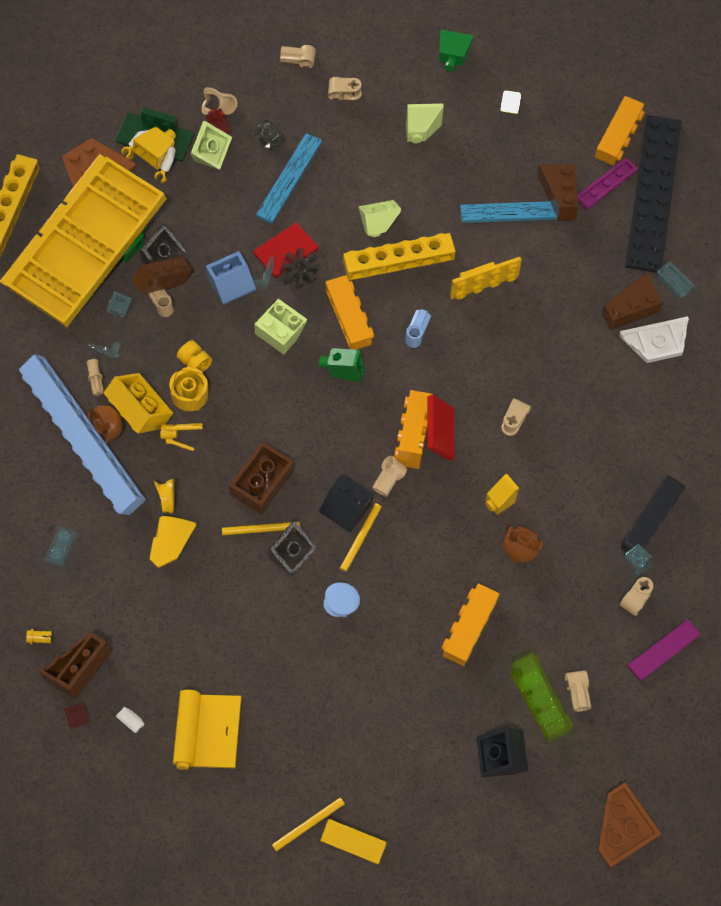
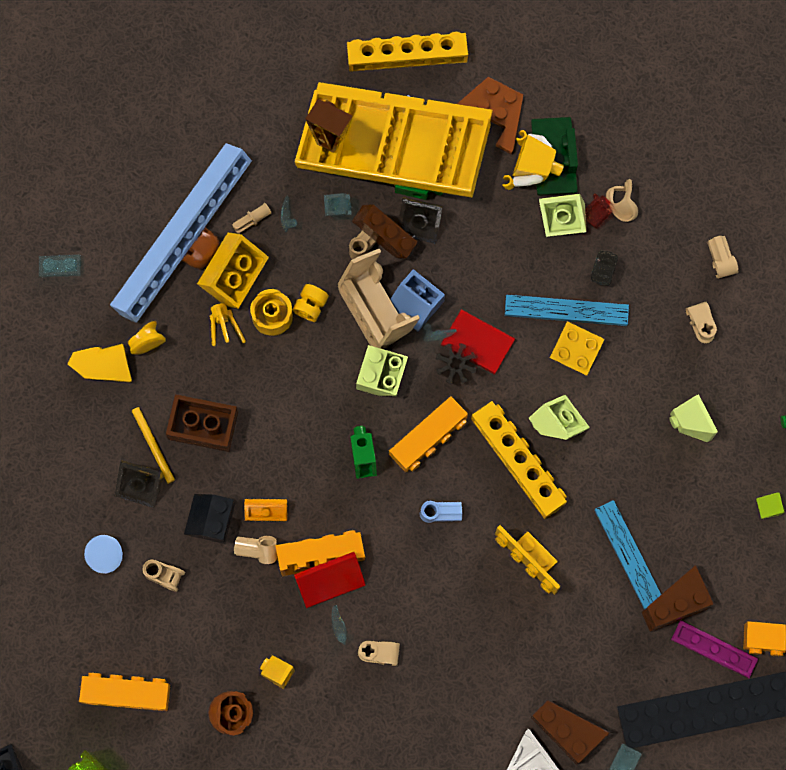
camera: 70 degrees right, 10 degrees up
(56, 268) = (328, 124): none -> reddish brown wedge
(222, 313) = (370, 303): none -> tan windscreen
(325, 181) = (577, 348): none -> yellow hinge
(358, 458) = (265, 509): none -> light orange plate
(360, 537) = (176, 546): yellow bar -> none
(382, 556) = (164, 574): none -> tan piece
(481, 440) = (338, 626): none -> clear light blue bar

